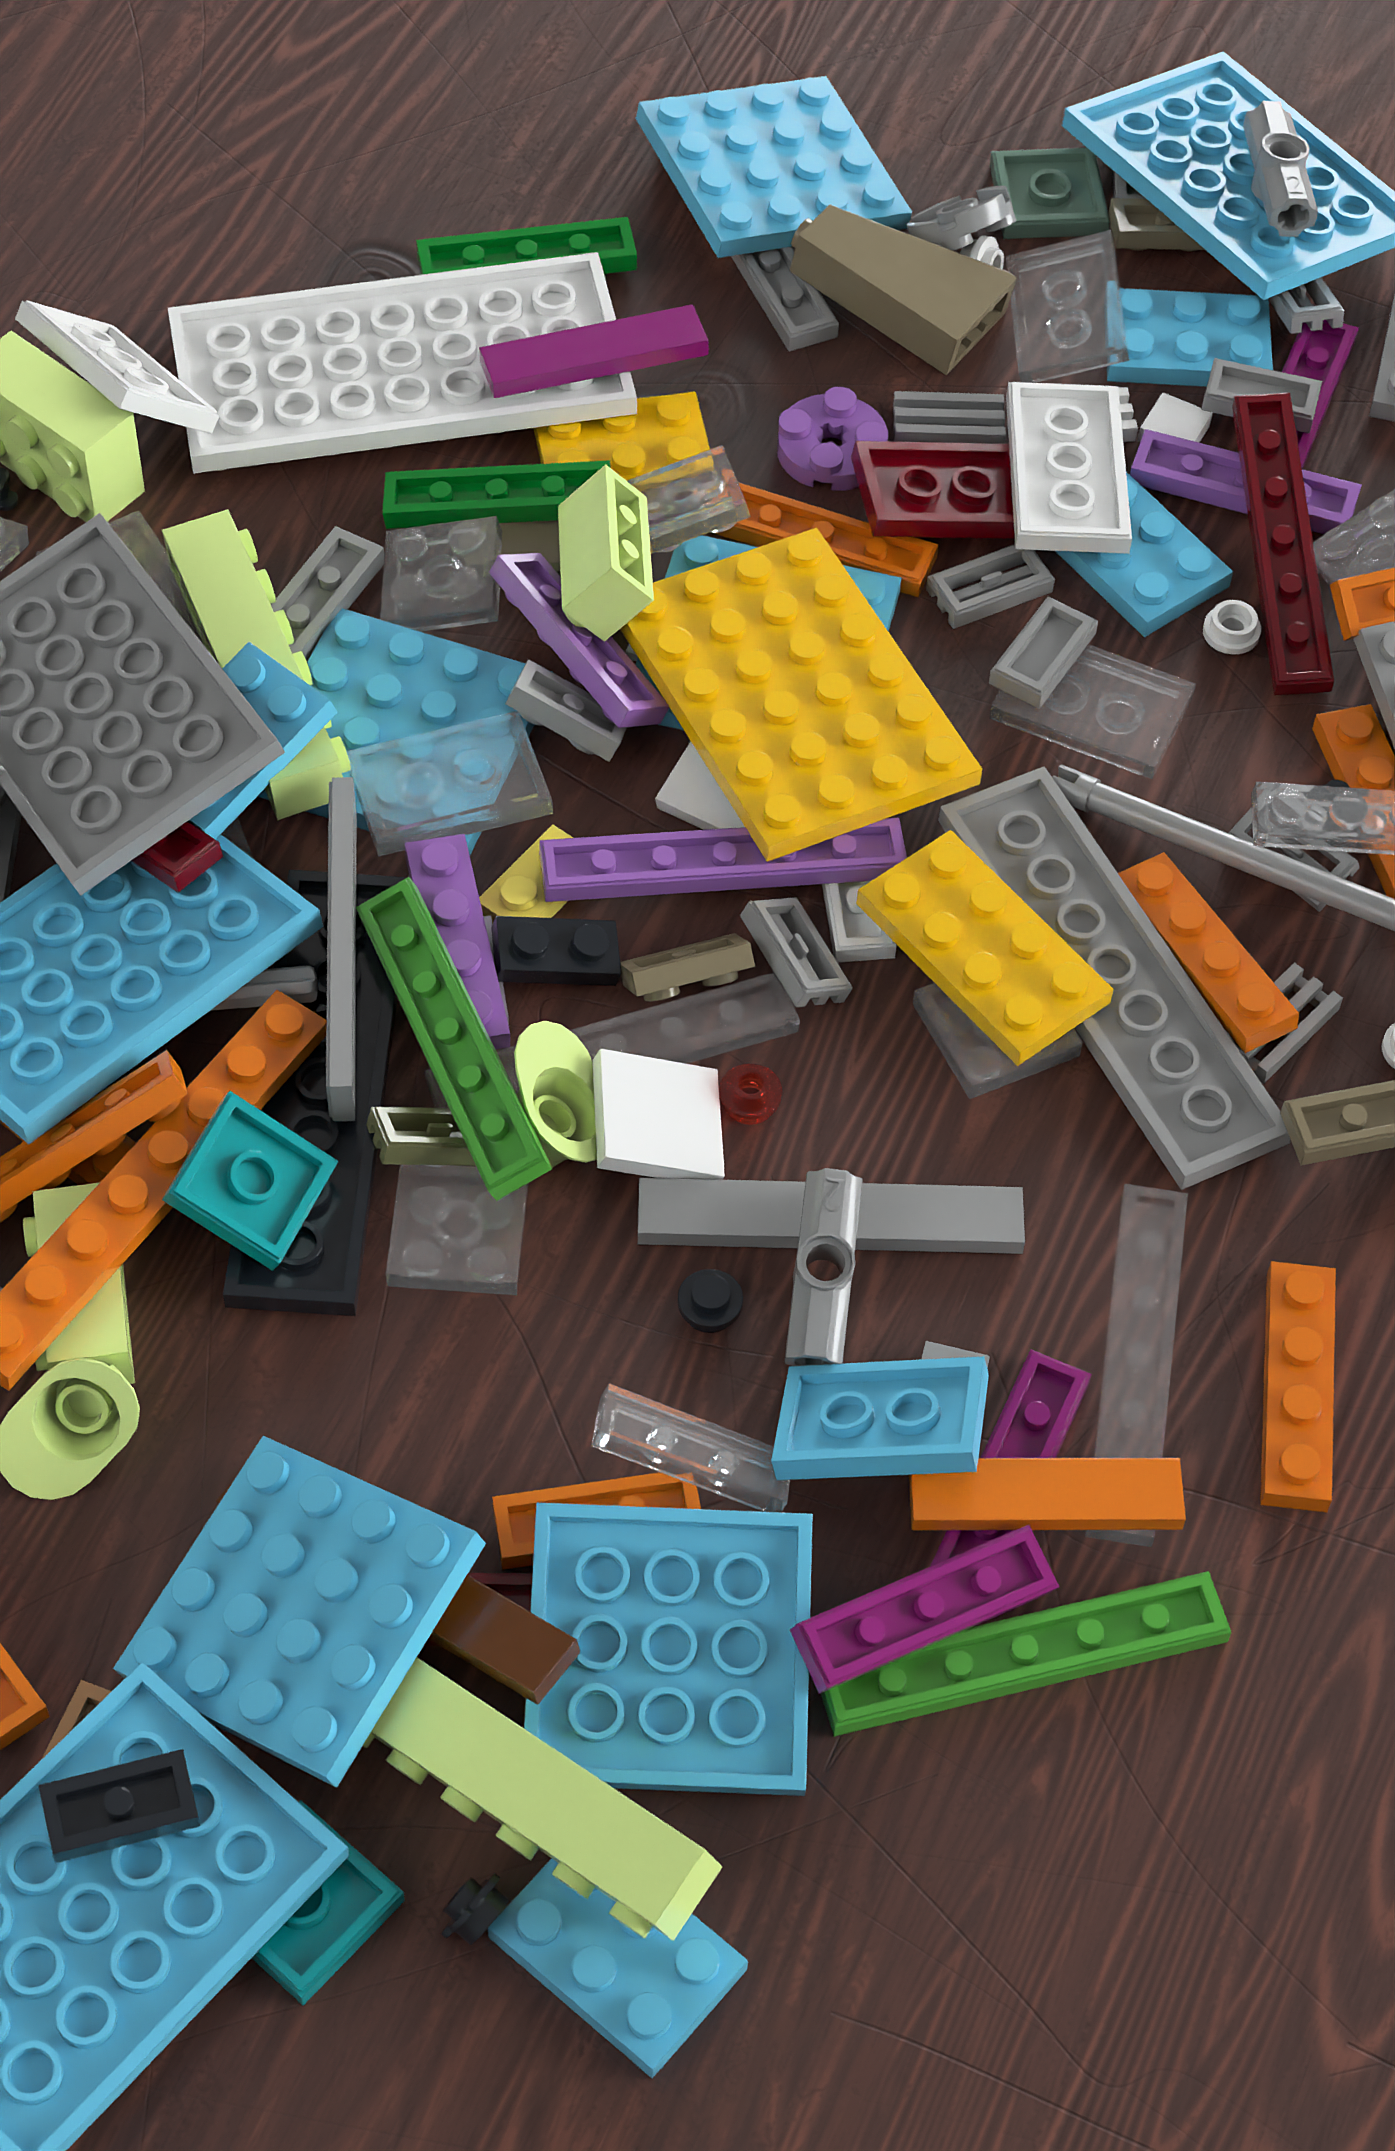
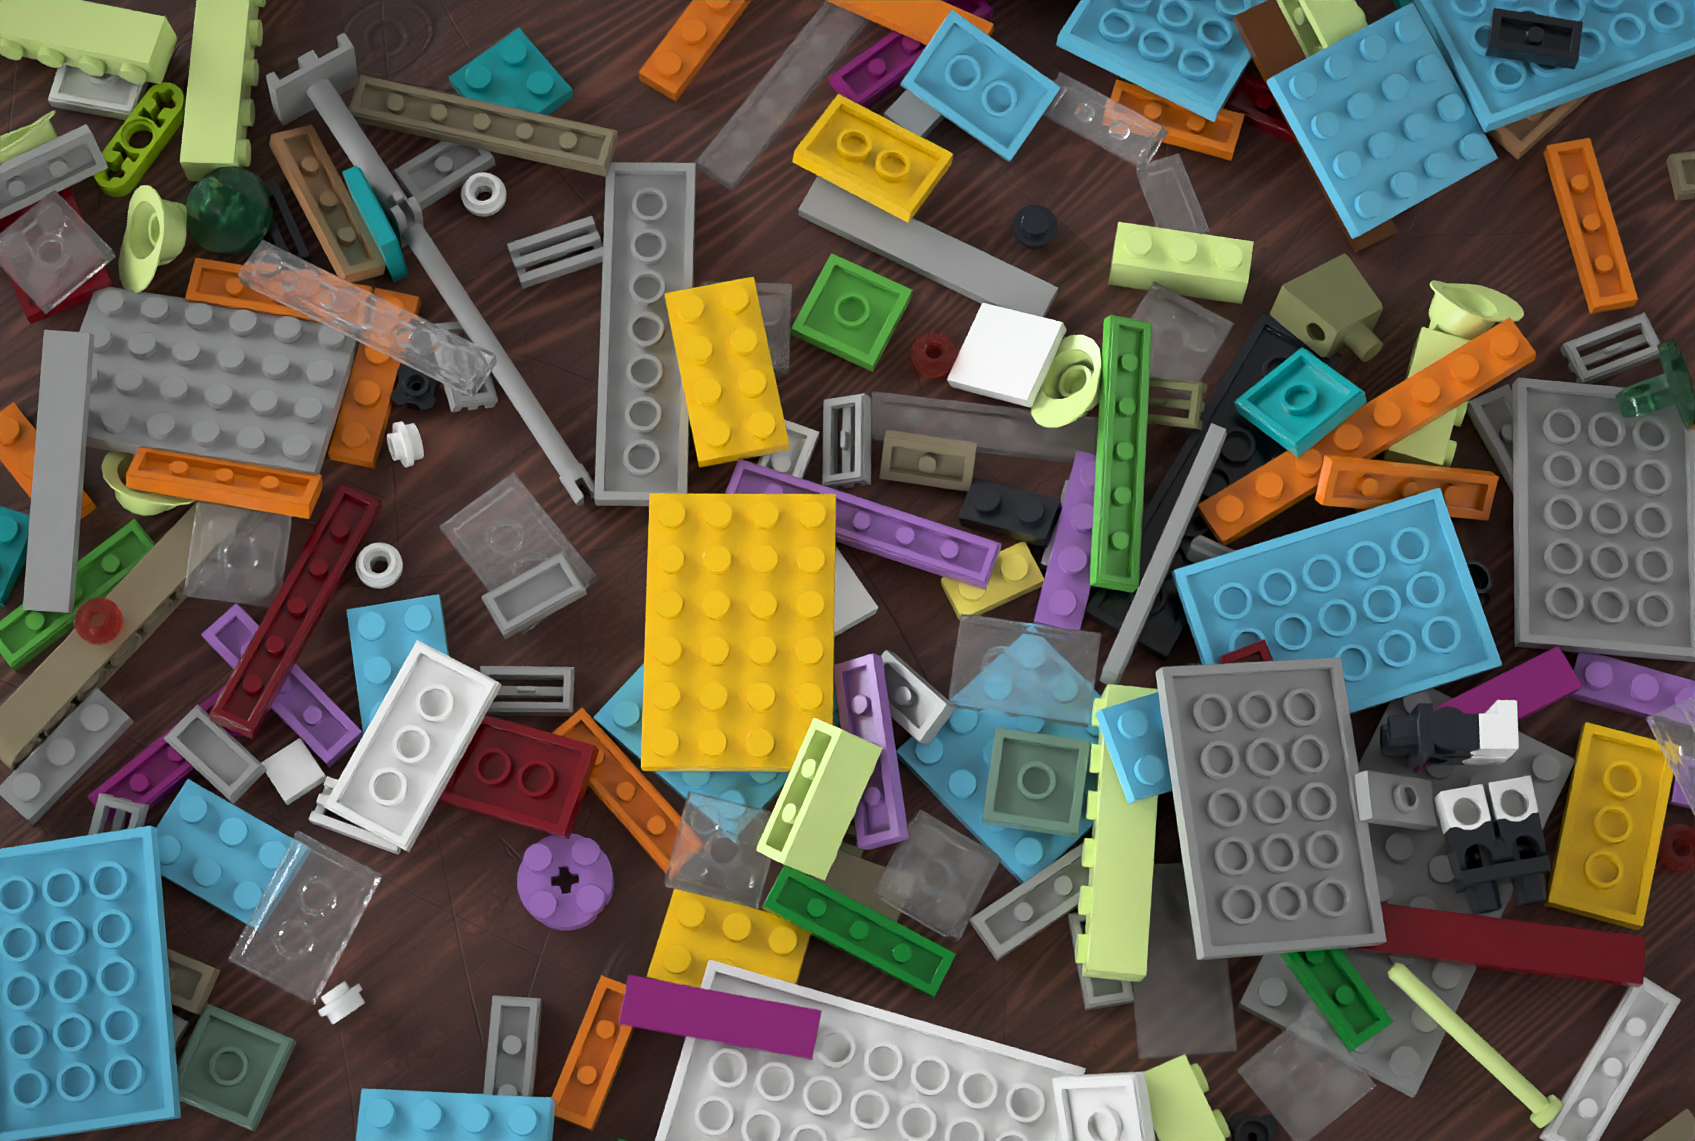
camera: 150 degrees left, 15 degrees up
(259, 1328) = (1331, 310): none -> olive torso
(376, 672) = (1036, 782): none -> sand green plate
(493, 1319) = (1181, 261): none -> yellowish green brick
(542, 1415) = (1172, 196): none -> clear tile
(701, 280) = (593, 1058): none -> orange plate
(827, 1234) = (947, 213): light grey piece -> none
(879, 1095) = (851, 312): none -> bright green plate
(901, 284) = (420, 985): dark tan slope -> none
(948, 412) = (428, 841): light grey tile -> none
(955, 219) = (340, 1018): light grey plate -> none
(967, 1280) = (873, 158): none -> yellow plate
(1211, 956) = (575, 315): orange plate -> none
(1280, 169) = (43, 964): light grey piece -> none
(1294, 744) = (405, 443): none -> white plate

